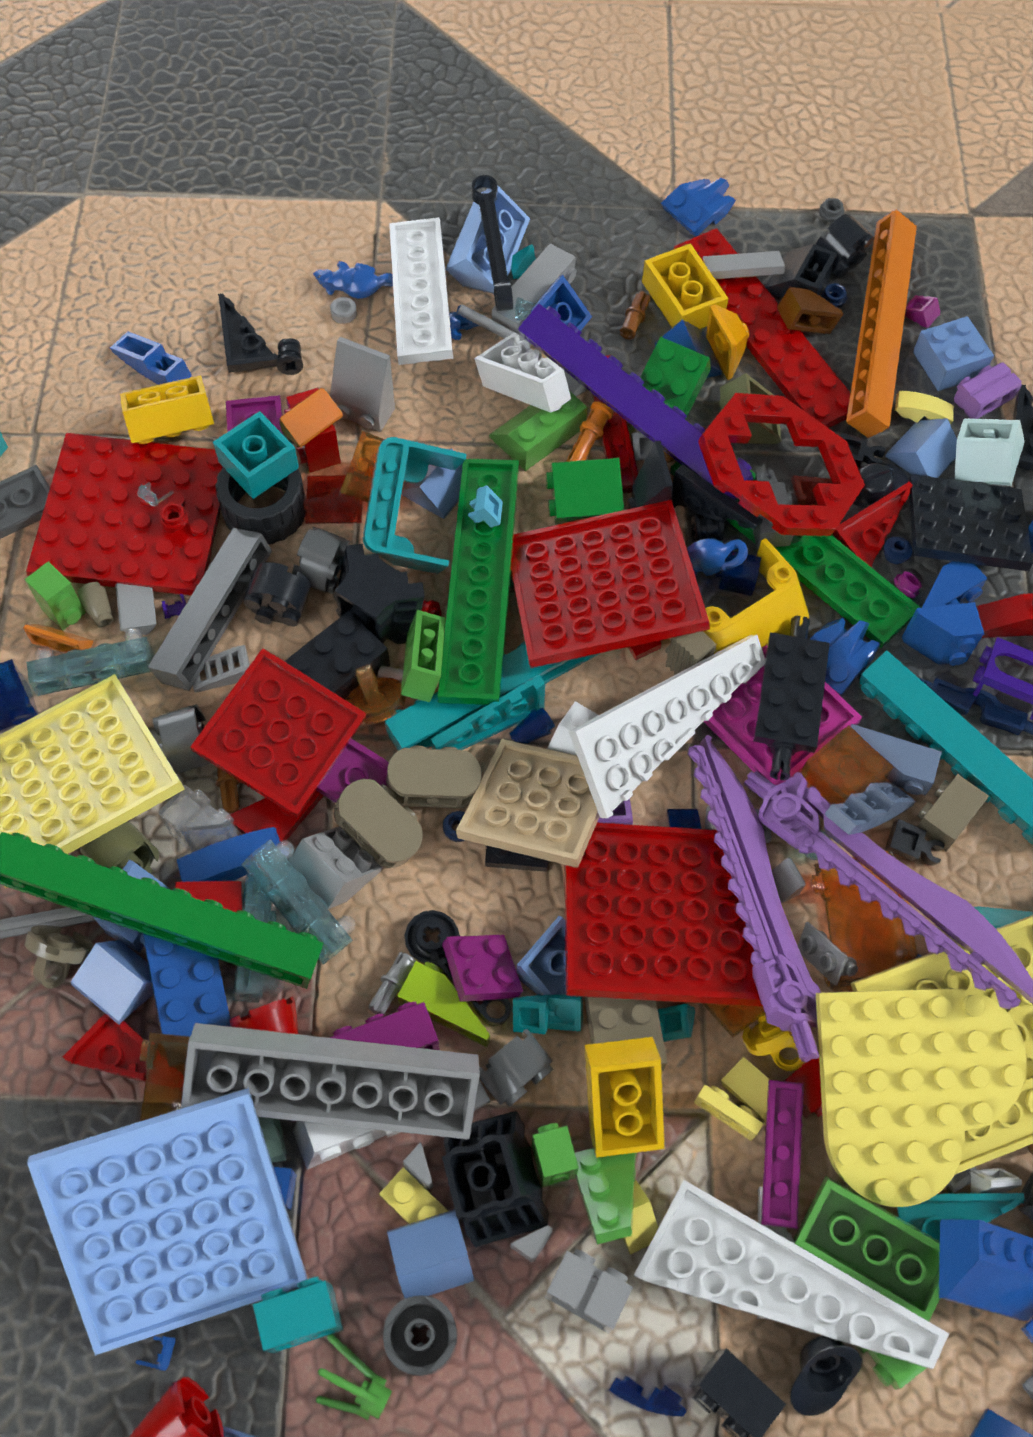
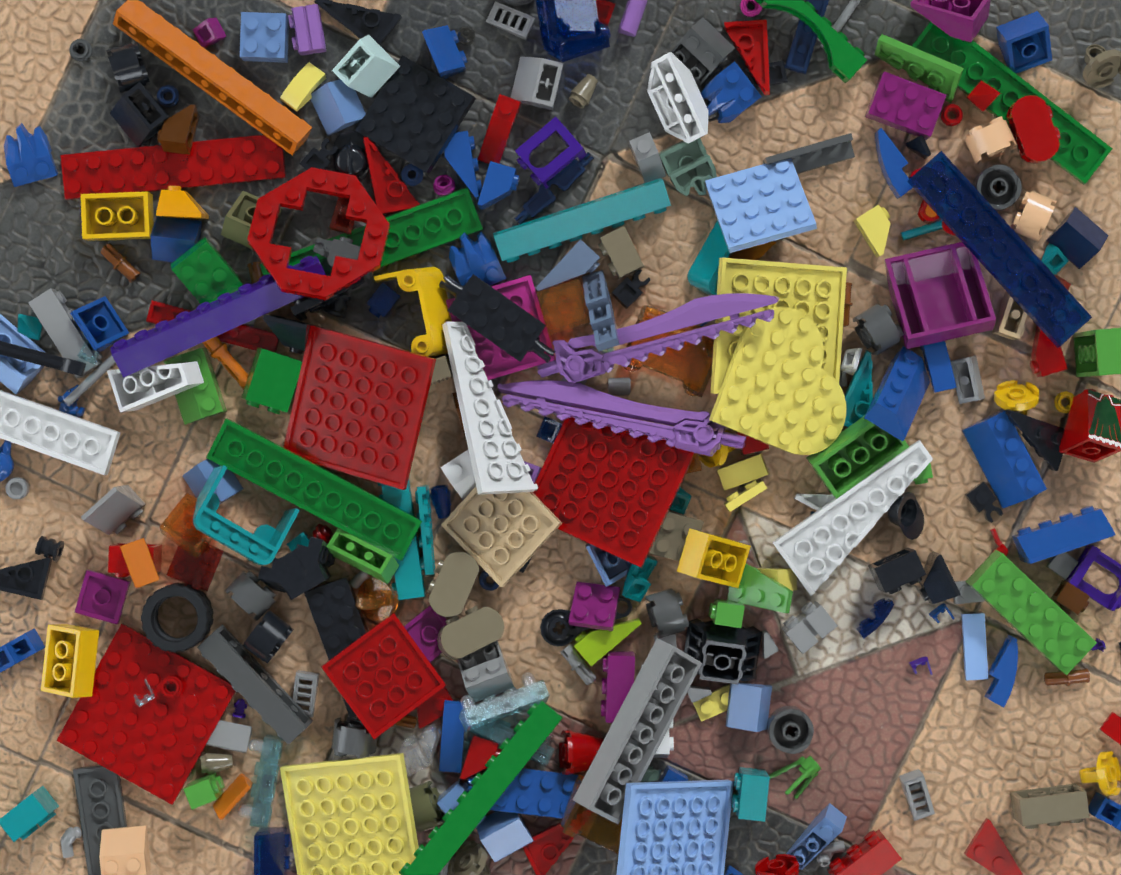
camera: 60 degrees left, 25 degrees up
(256, 454) = (158, 615): teal brick -> none
(487, 507) = (263, 462): medium azure tile -> none
(710, 555) = (368, 318): blue animal -> none
(745, 264) = (114, 158): light grey tile -> none
(782, 1154) = (784, 478): magenta tile -> none
(825, 955) = (671, 389): light grey hinge -> none

